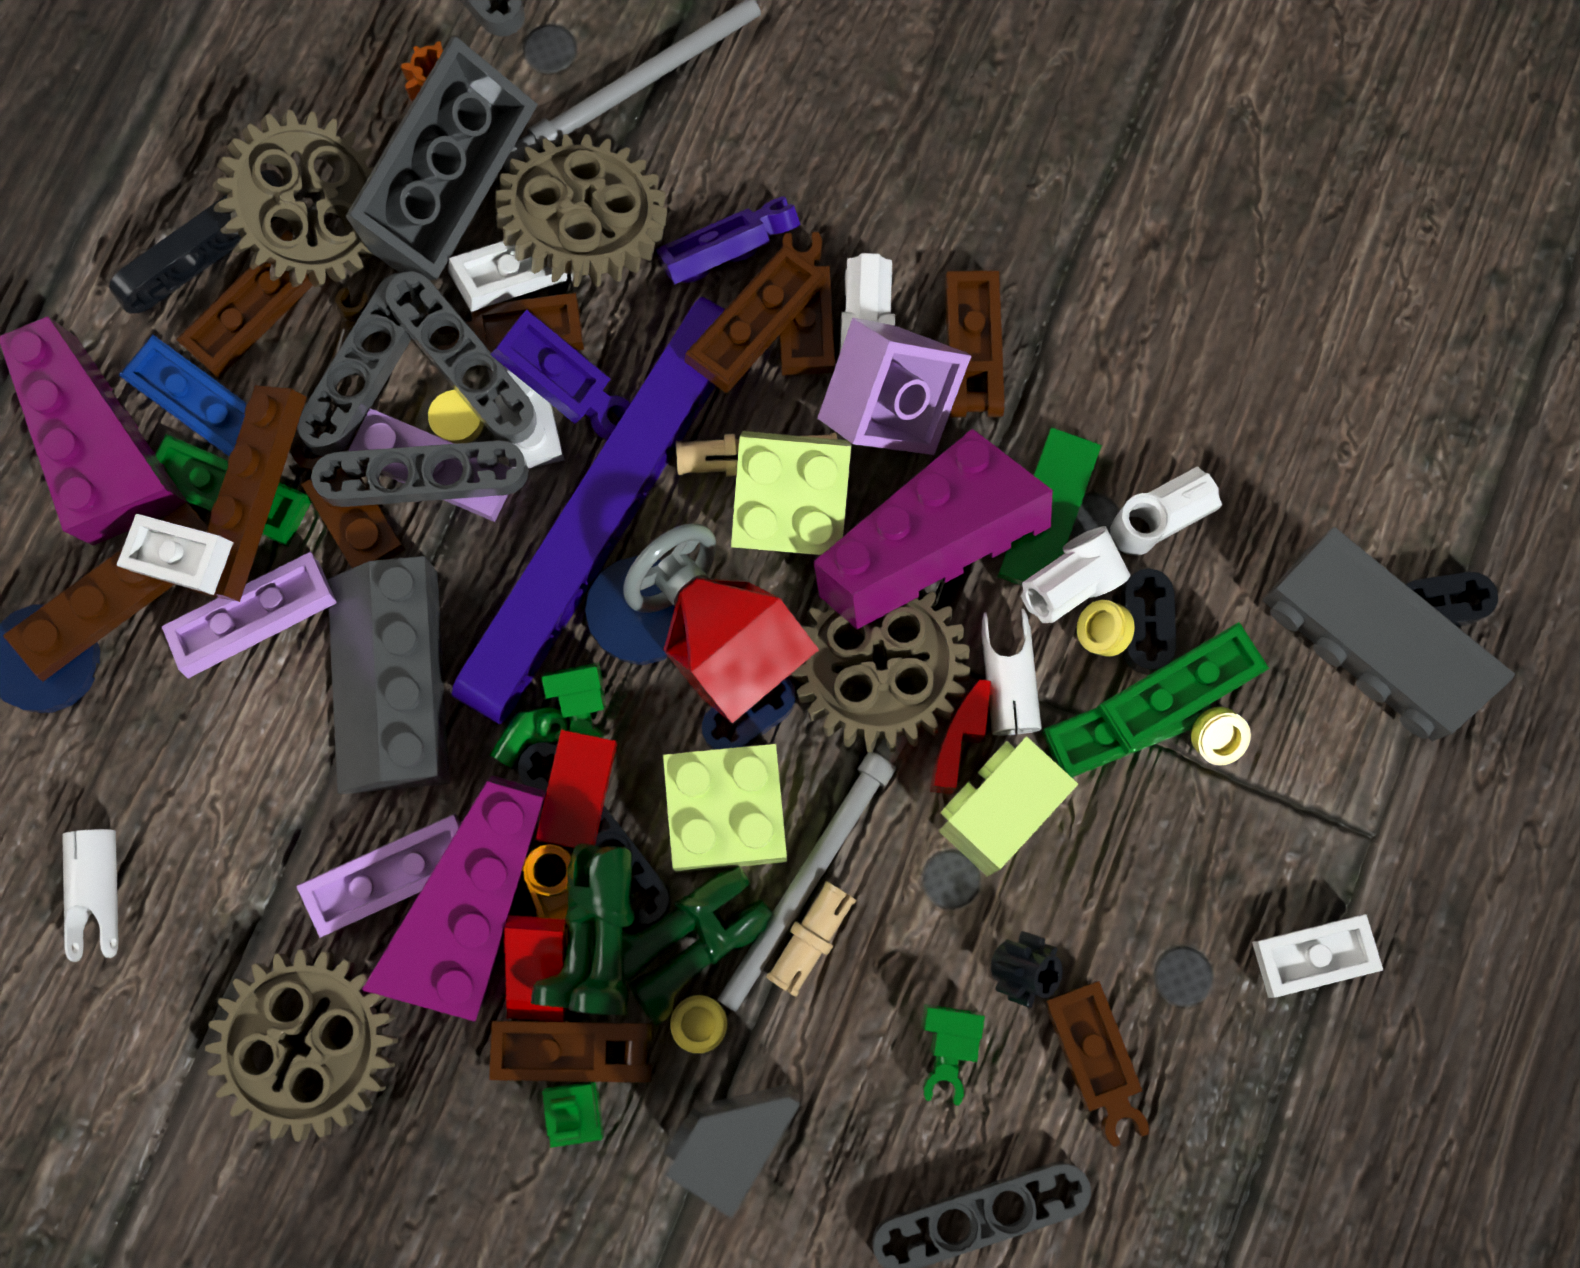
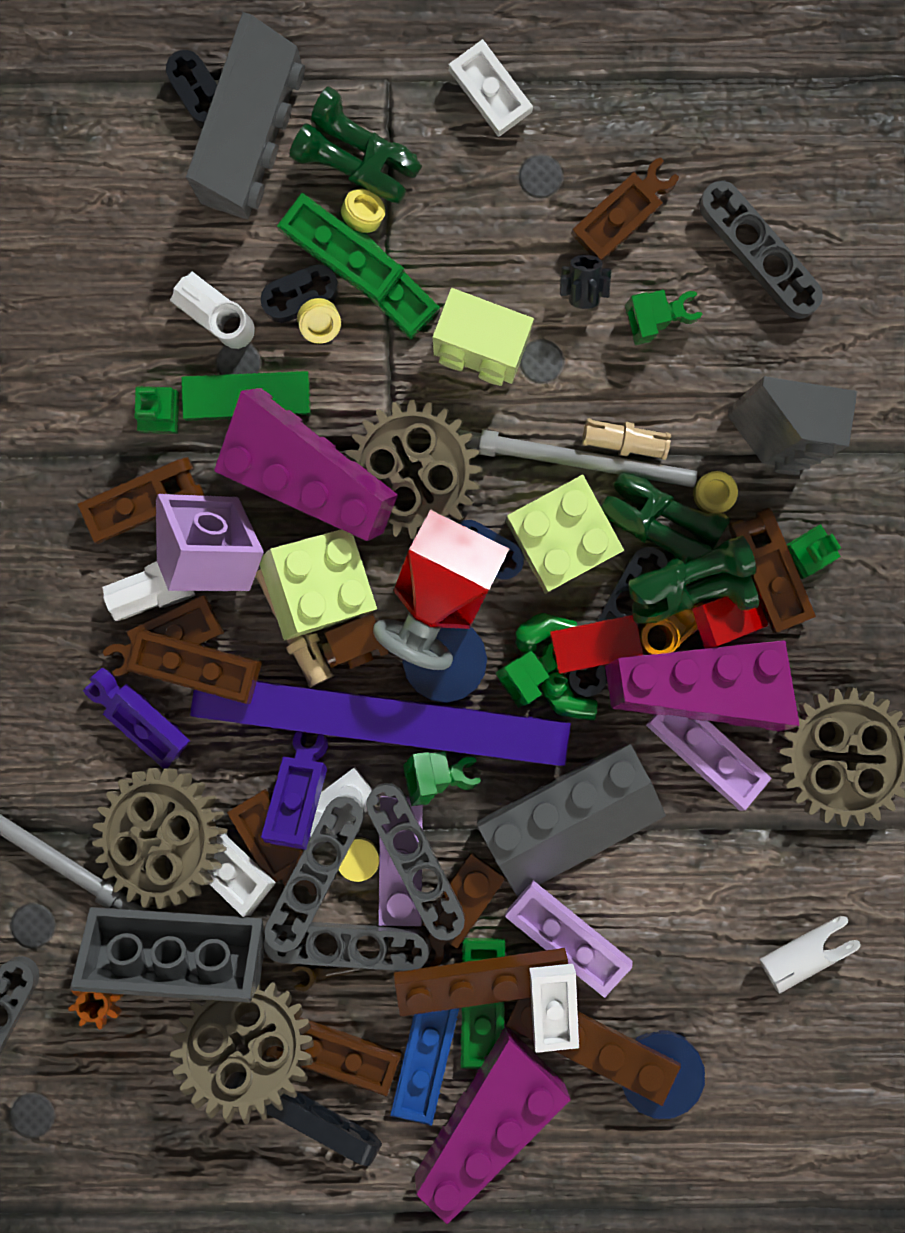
camera: 110 degrees left, 10 degrees up
(512, 534) = (429, 774): none -> green piece
(629, 733) = (538, 629): none -> green arm
(708, 504) = (353, 643): none -> reddish brown brick
(966, 726) = (429, 389): red slope -> none
(1012, 685) = (388, 371): white piece -> none
(1073, 402) = (157, 410): none -> green piece
(1084, 571) = (282, 349): white piece -> none
(1322, 706) = (329, 118): none -> dark green piece

